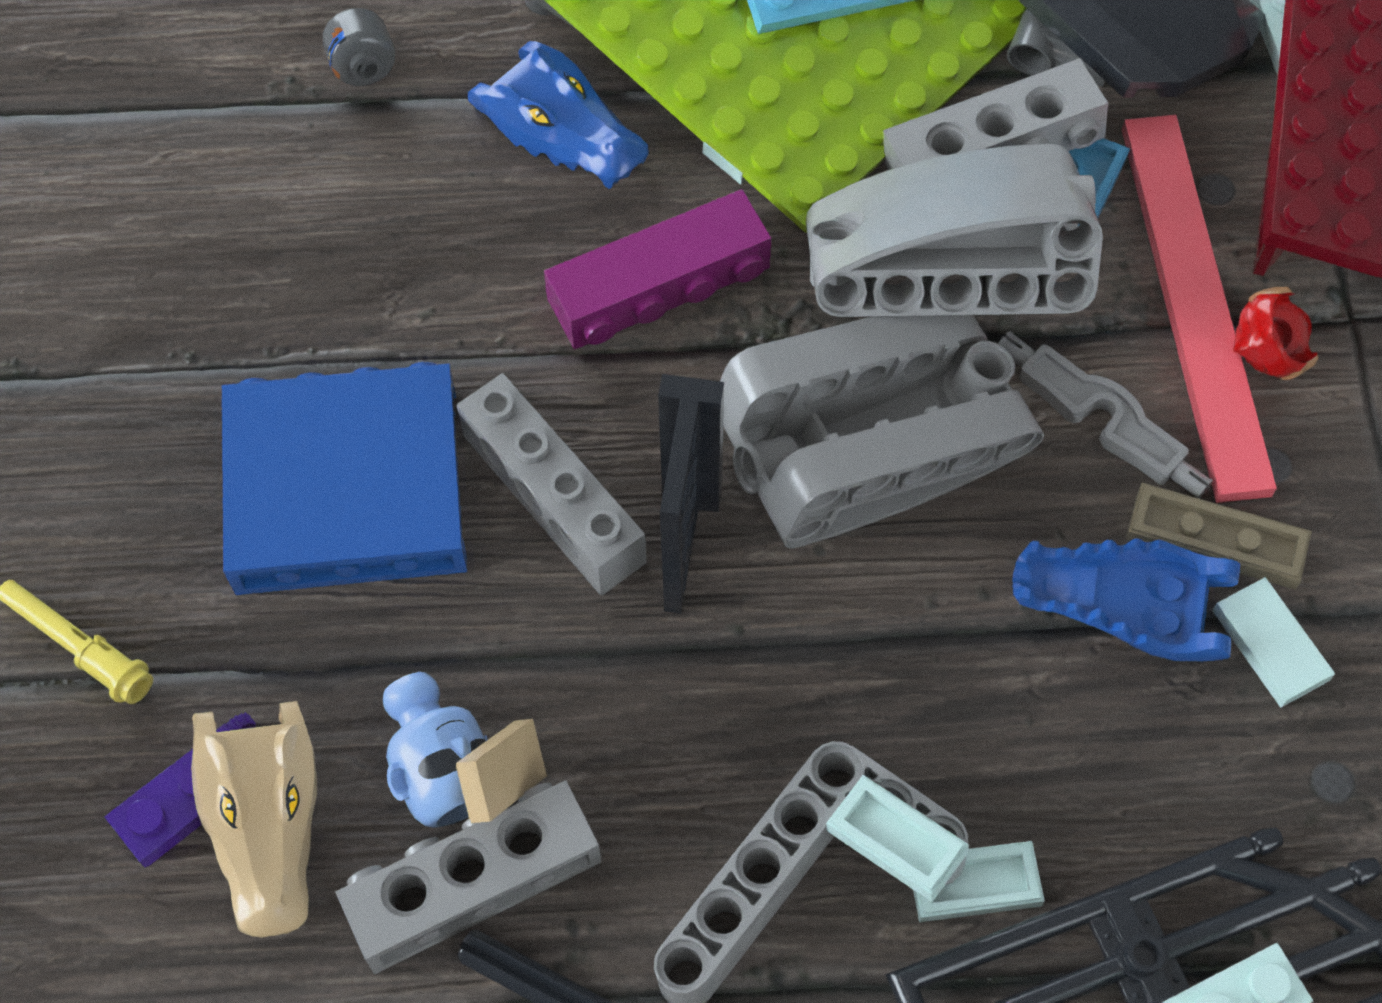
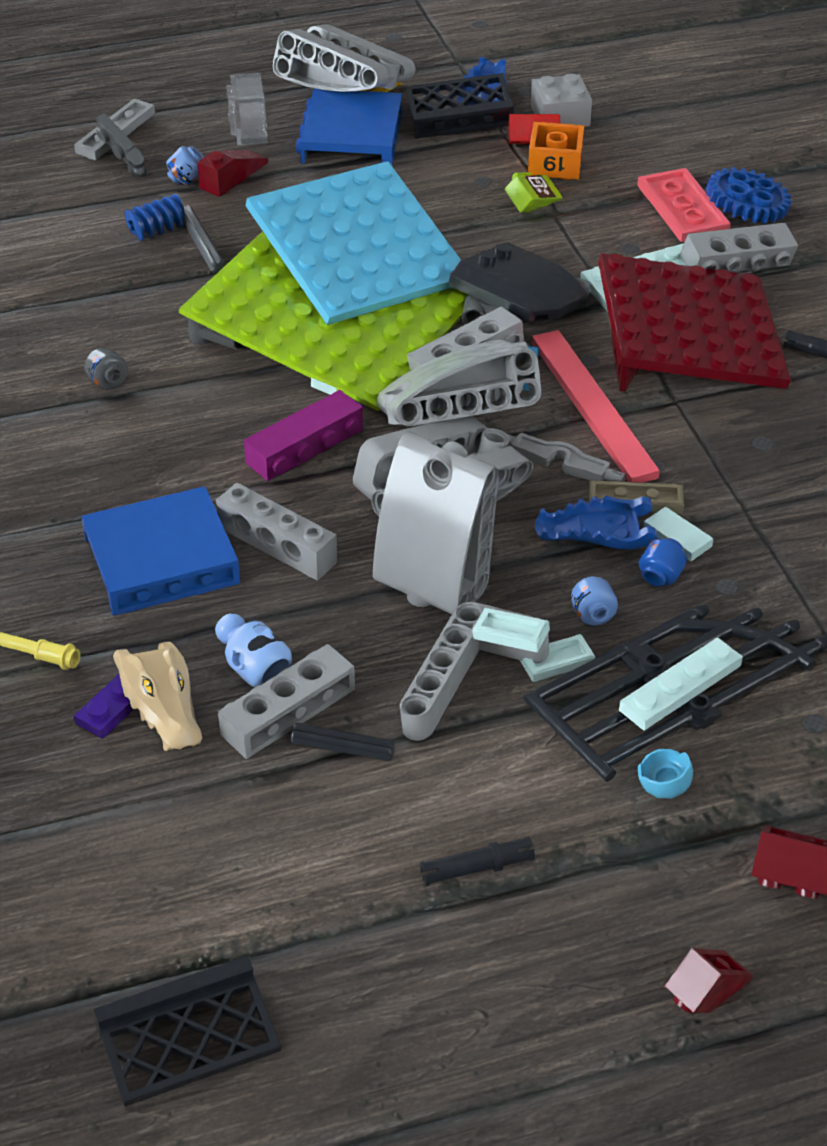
camera: 15 degrees left, 20 degrees down
(501, 770) = (290, 643): tan tile -> none
(556, 112) = (223, 378): blue animal -> none
(690, 471) = (352, 492): black fence -> none
(813, 588) = (436, 524): none -> light grey panel
(1075, 775) = (594, 601): none -> medium blue head
(1225, 713) = (662, 562): none -> blue head
(1275, 334) = (637, 407): red hair -> none

